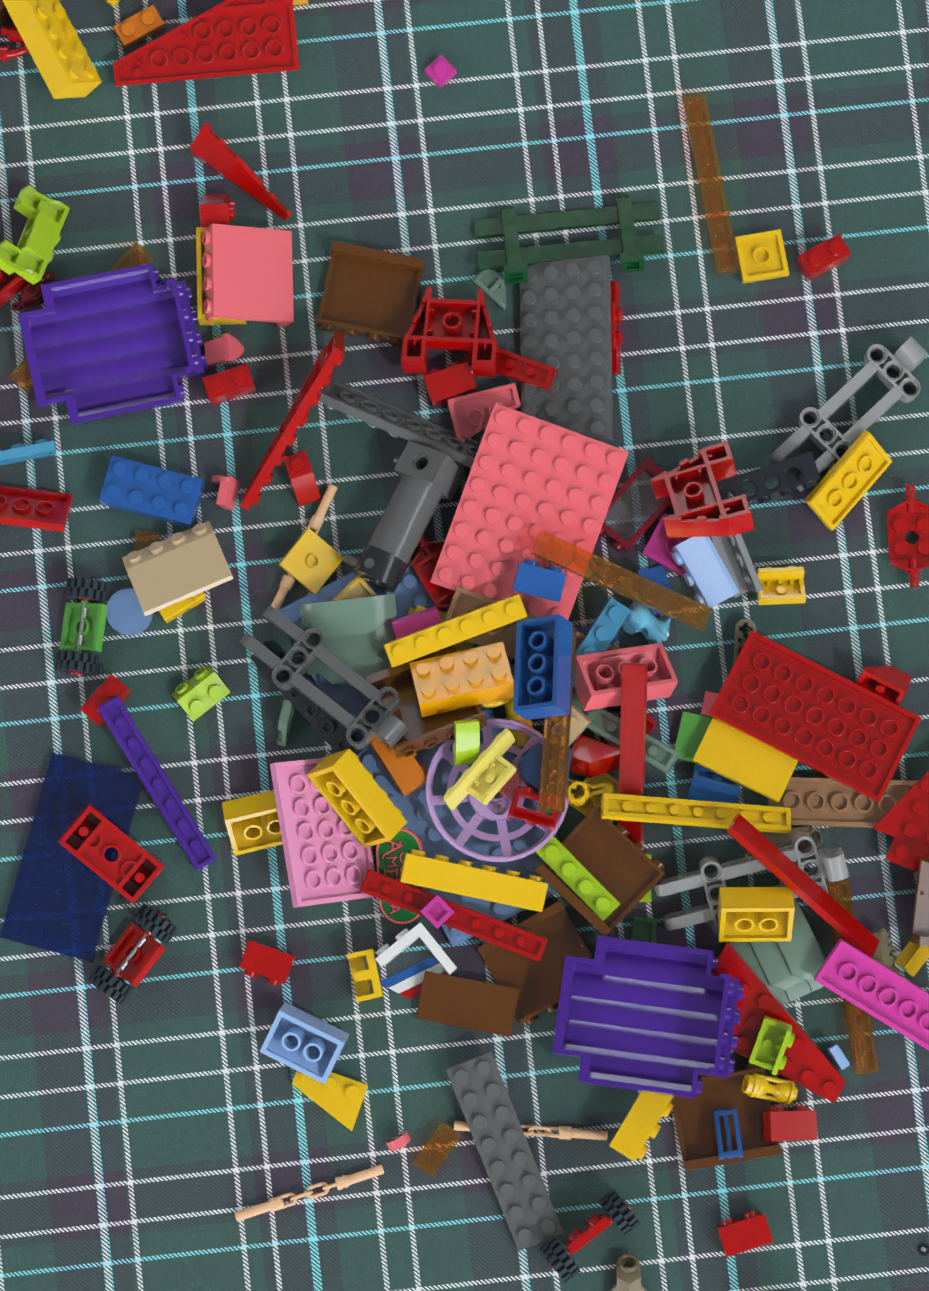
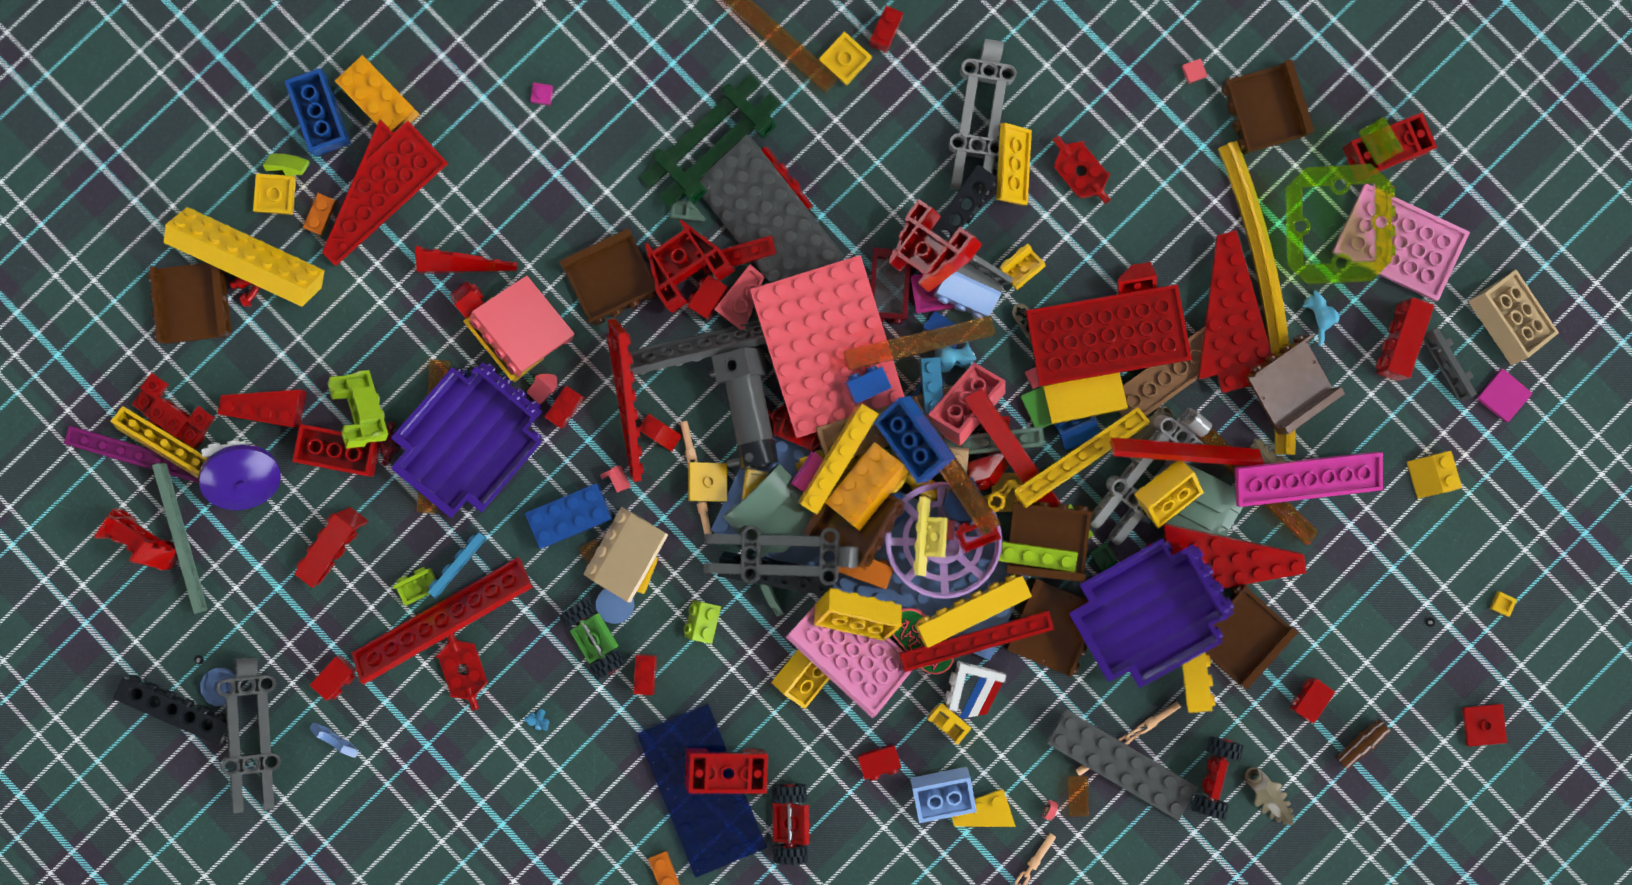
camera: 30 degrees left, 5 degrees up
(156, 783) = (719, 702): dark purple tile -> none
(437, 911) = (965, 648): dark pink plate -> none
(466, 742) = (901, 525): lime slope -> none
(467, 1003) = (1026, 689): reddish brown tile -> none
(730, 1153) = (1266, 657): blue tile -> none
(758, 1085) = (1252, 600): yellow piece -> none
(771, 1044) = (1242, 568): lime bracket -> none
(789, 1125) = (1289, 609): red brick -> none
(838, 1057) = (1284, 541): light blue tile -> none

